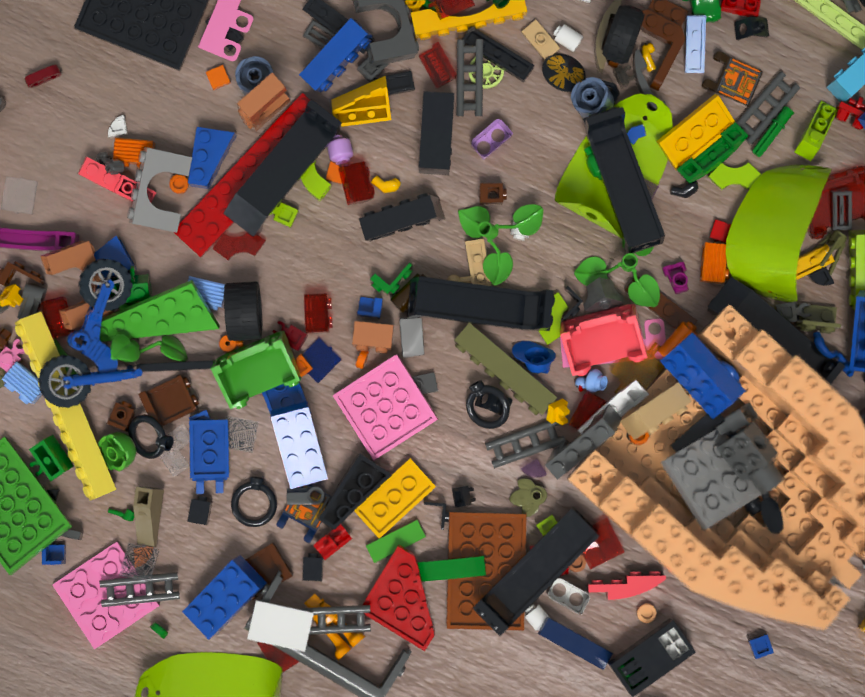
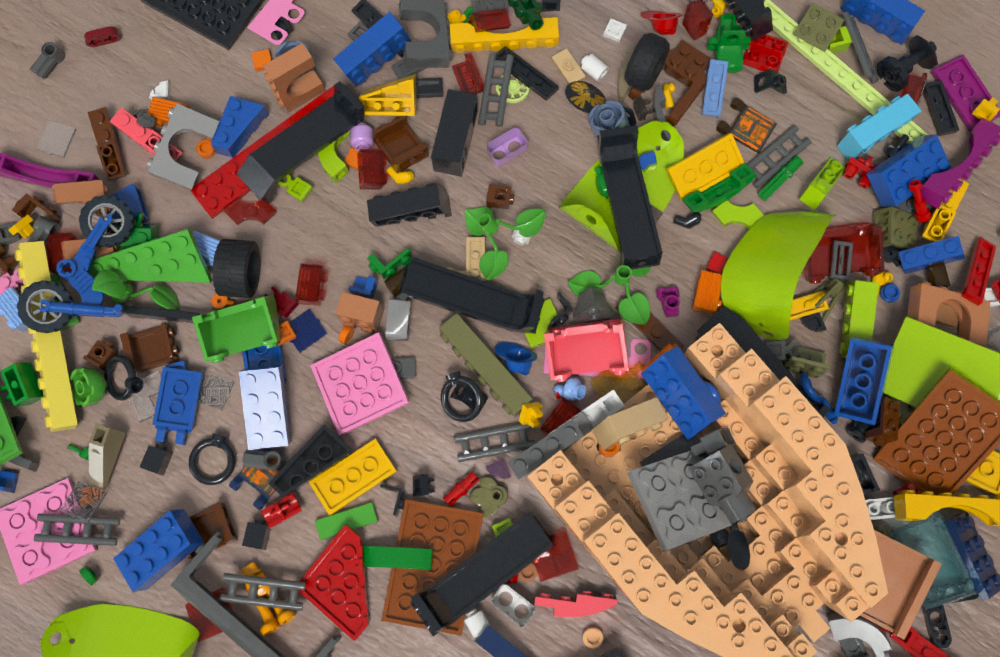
camera: 15 degrees right, 10 degrees down
(77, 196) = (107, 144): none -> reddish brown slope
(280, 625) = (206, 588): white tile -> none
(380, 152) = (399, 144): none -> reddish brown panel
(501, 493) = (461, 488): none -> red pin

